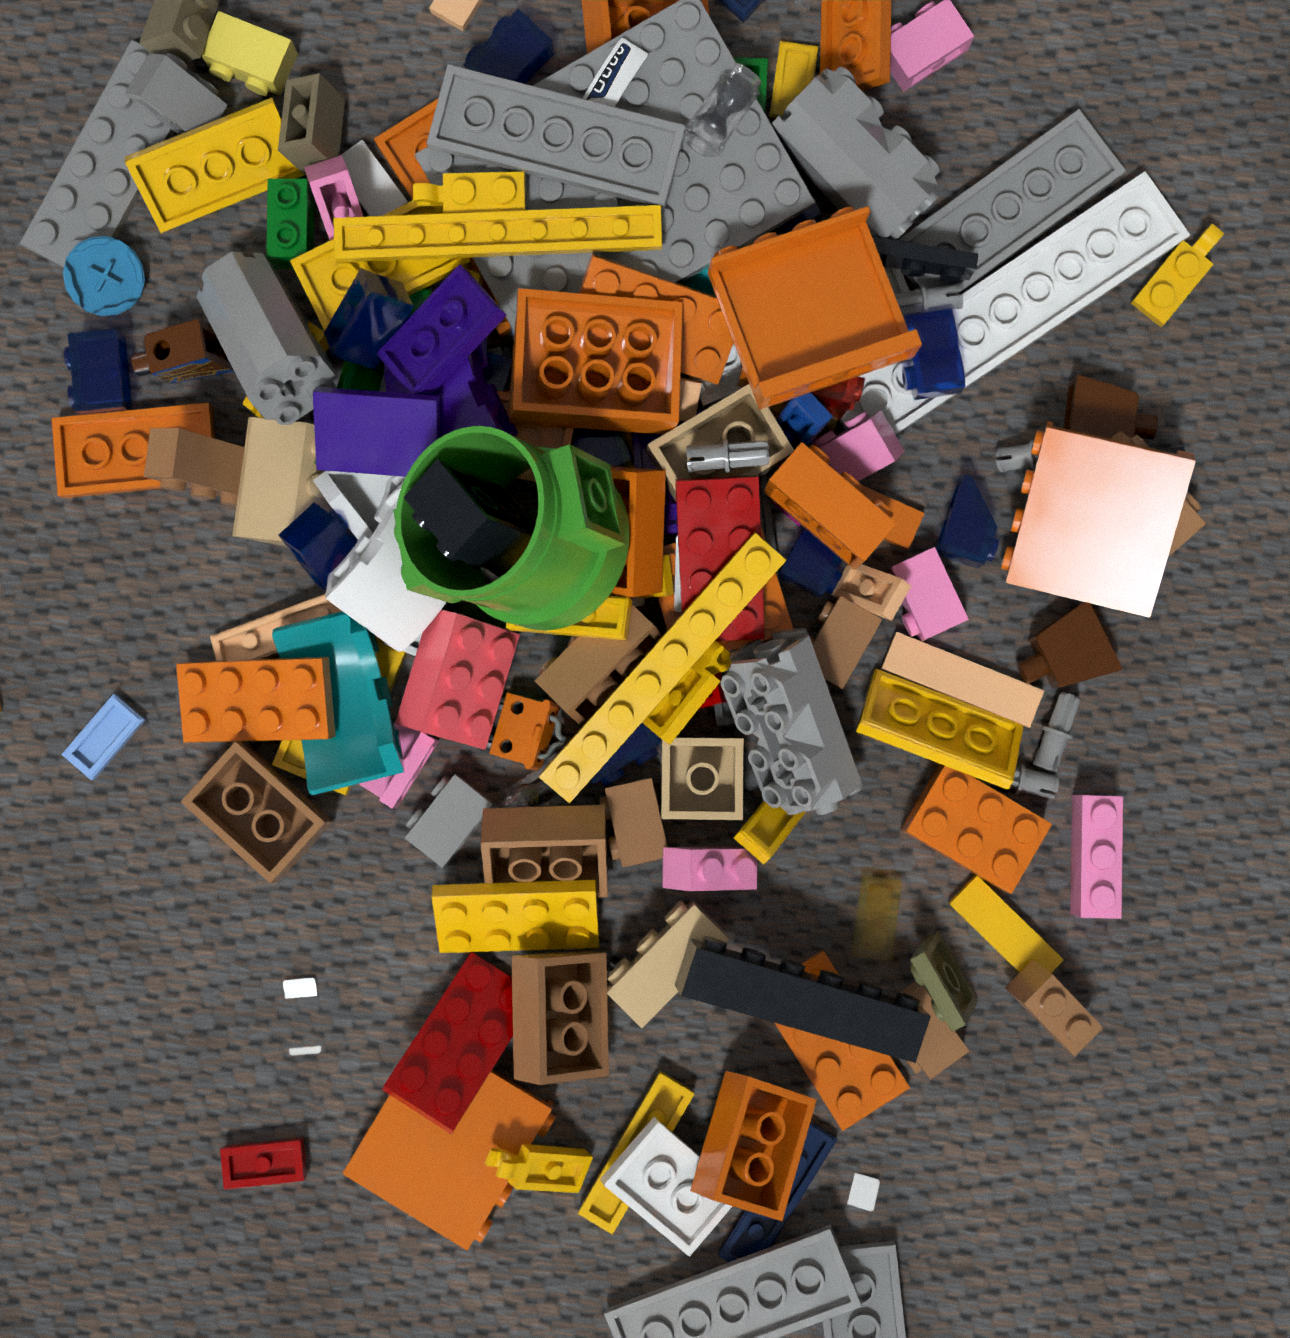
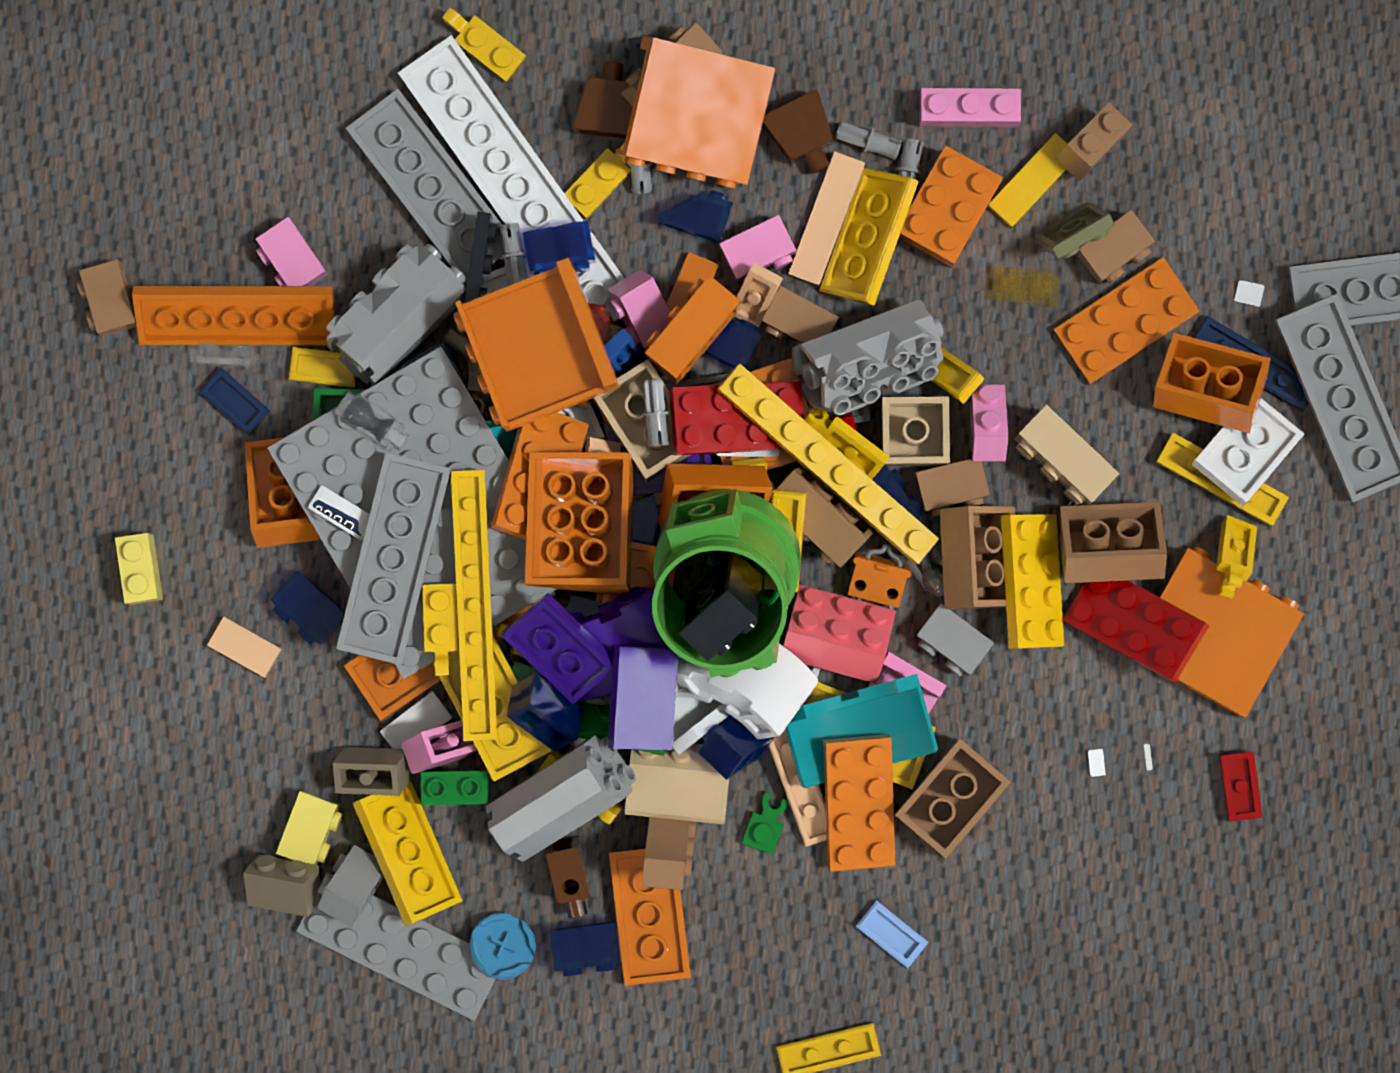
camera: 90 degrees left, 0 degrees up
(234, 588) = (763, 829): none -> green plate
(802, 999) = (1092, 344): black brick -> none
(1008, 407) = (598, 182): none -> yellow plate

